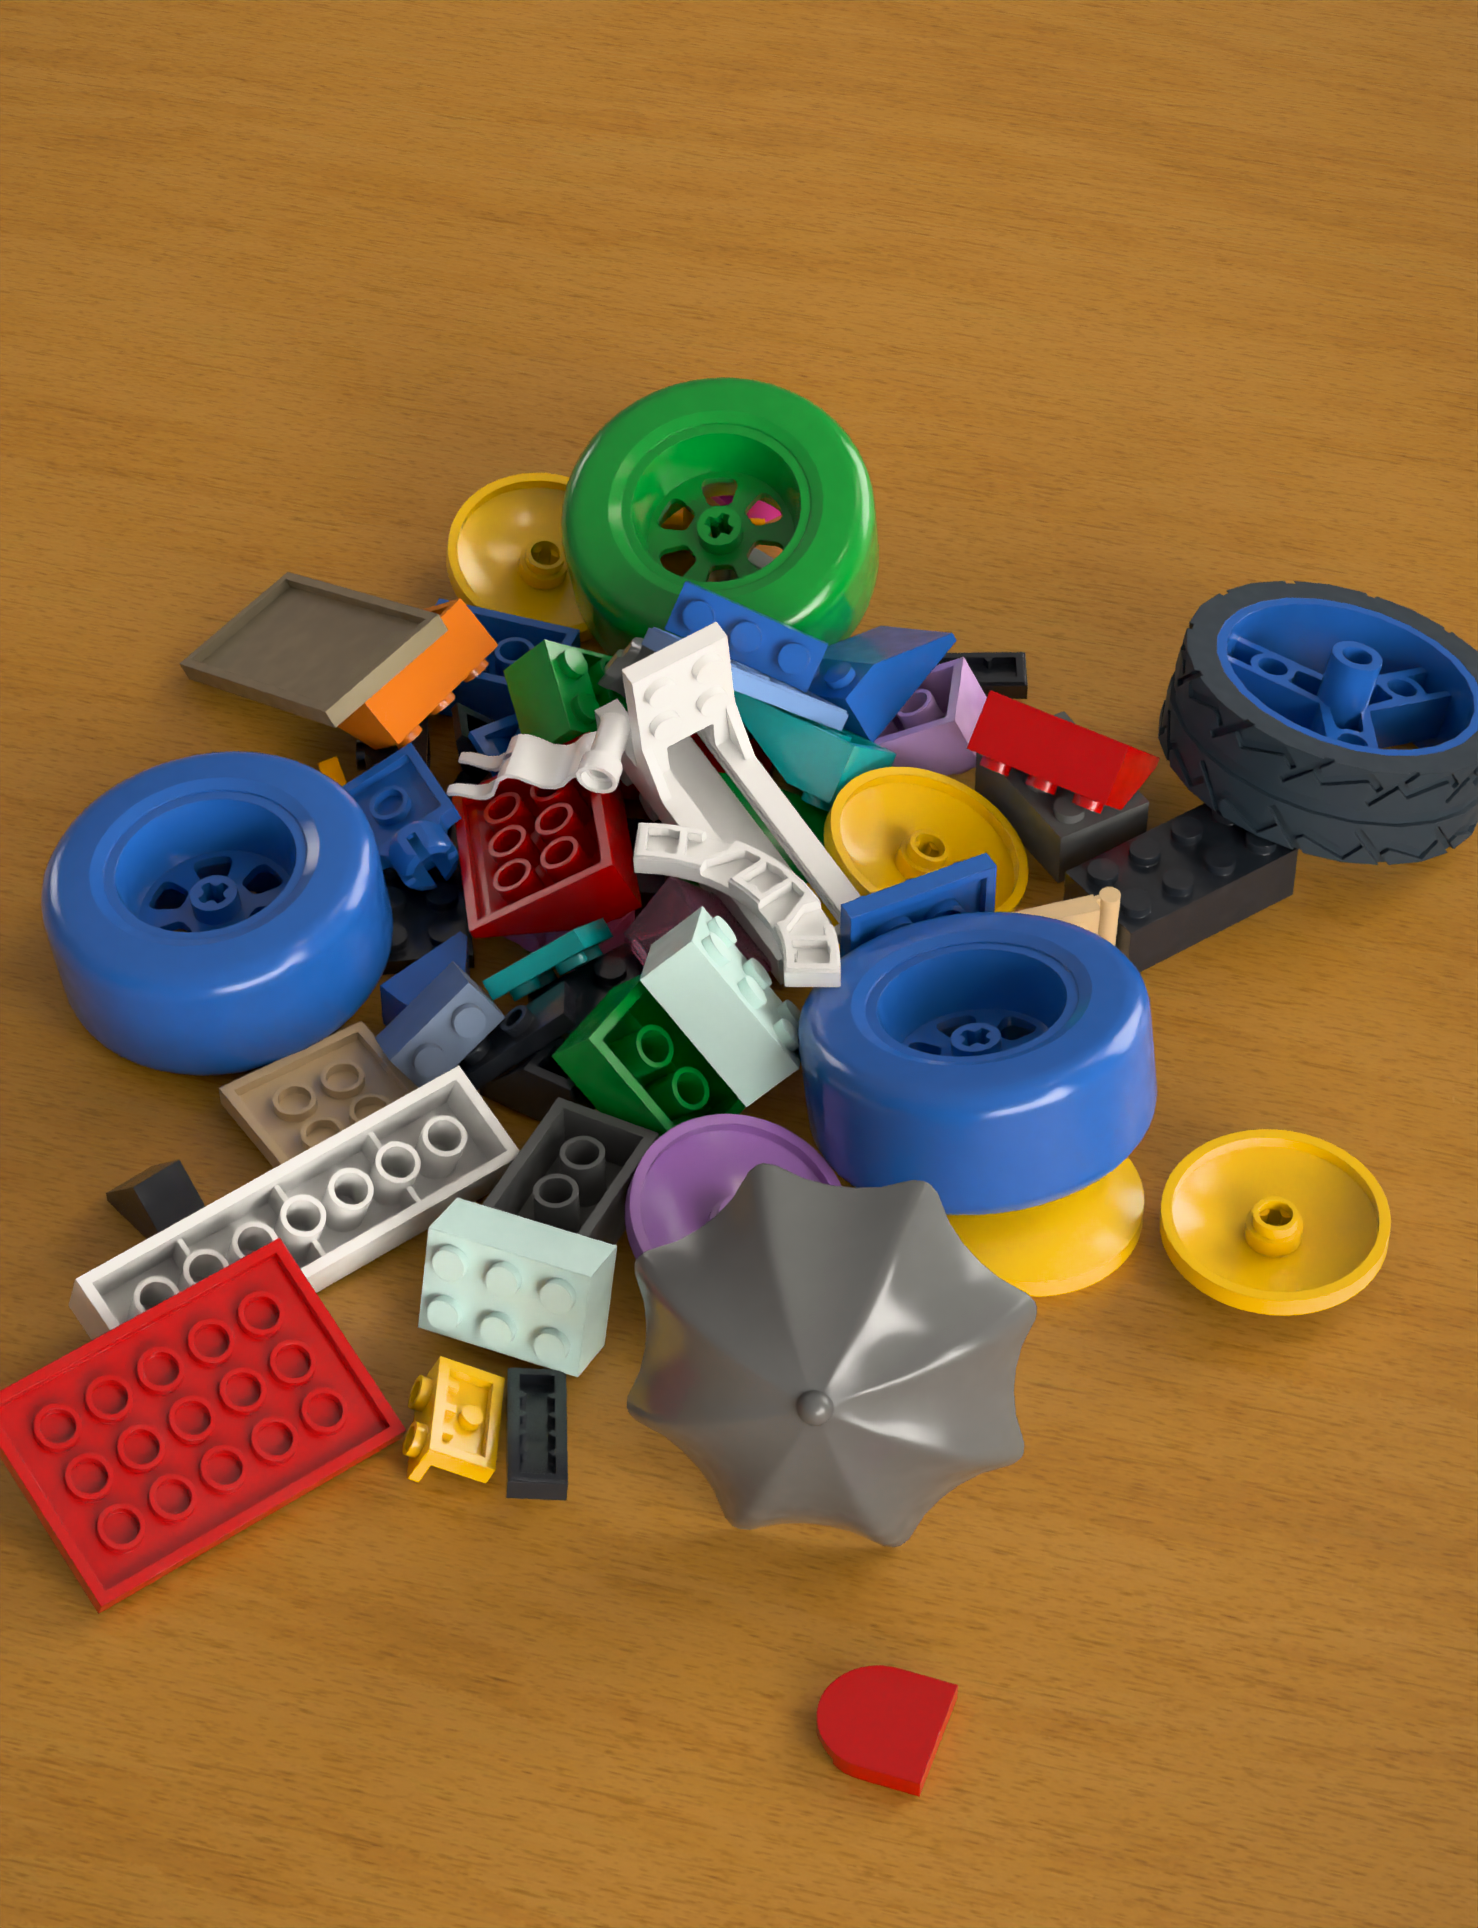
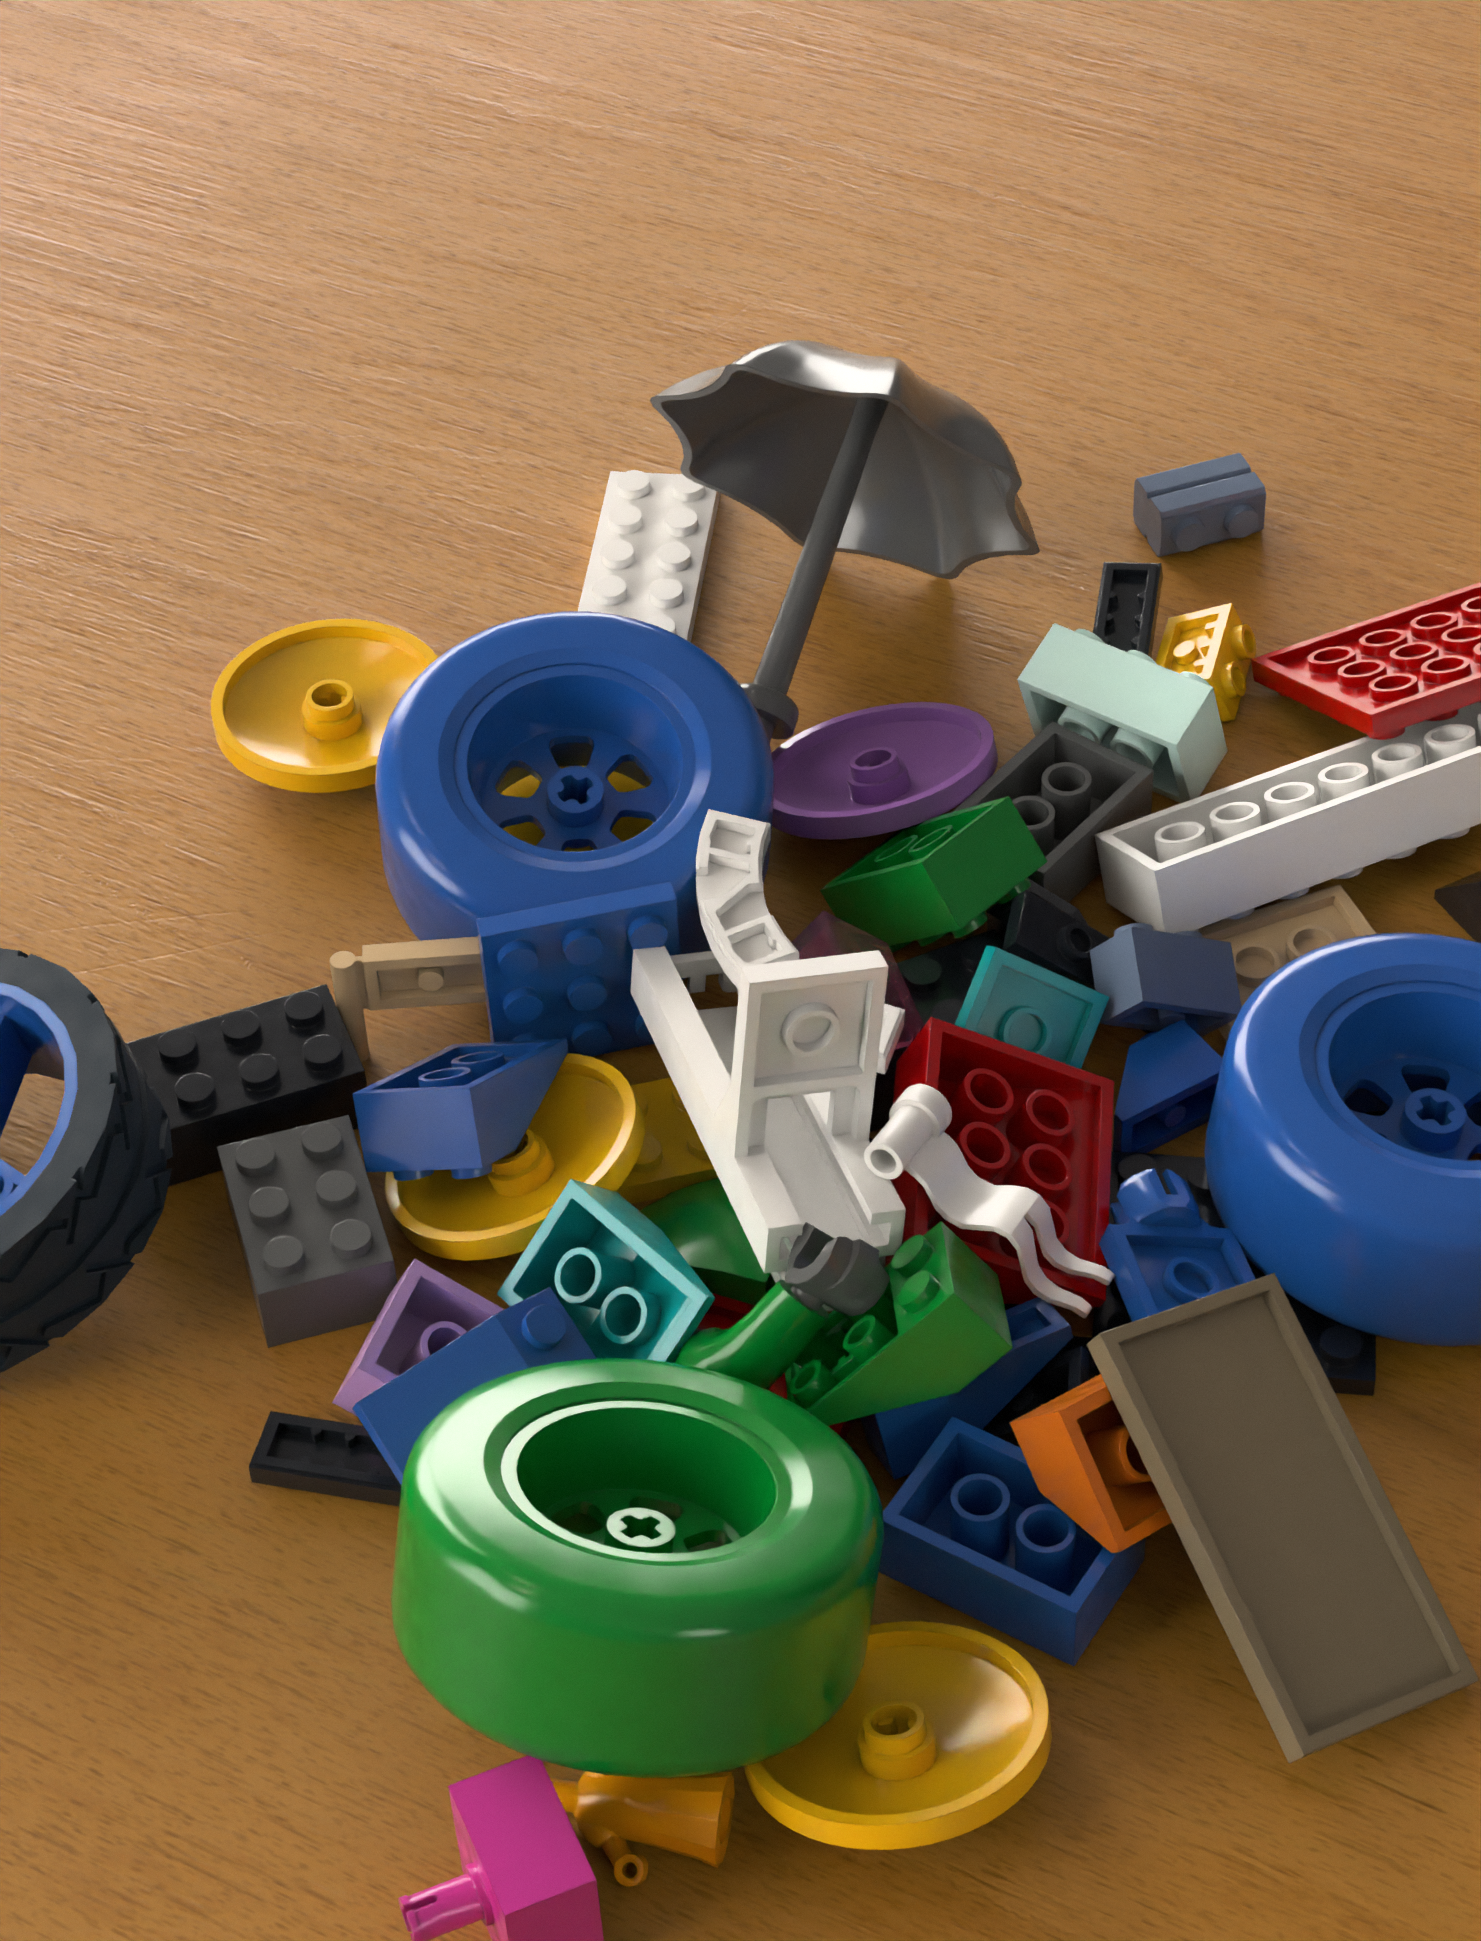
camera: 165 degrees left, 0 degrees up
(481, 1620) = (1199, 504): none -> sand blue brick
(724, 1004) = (848, 854): light aqua brick -> none
(752, 636) = (665, 1312): blue brick -> none
(766, 688) = (690, 1239): medium blue tile -> none
(981, 816) = (456, 1108): none -> blue slope
(1058, 754) = (300, 1165): red slope -> none
(1059, 1500) = (651, 549): none -> white plate

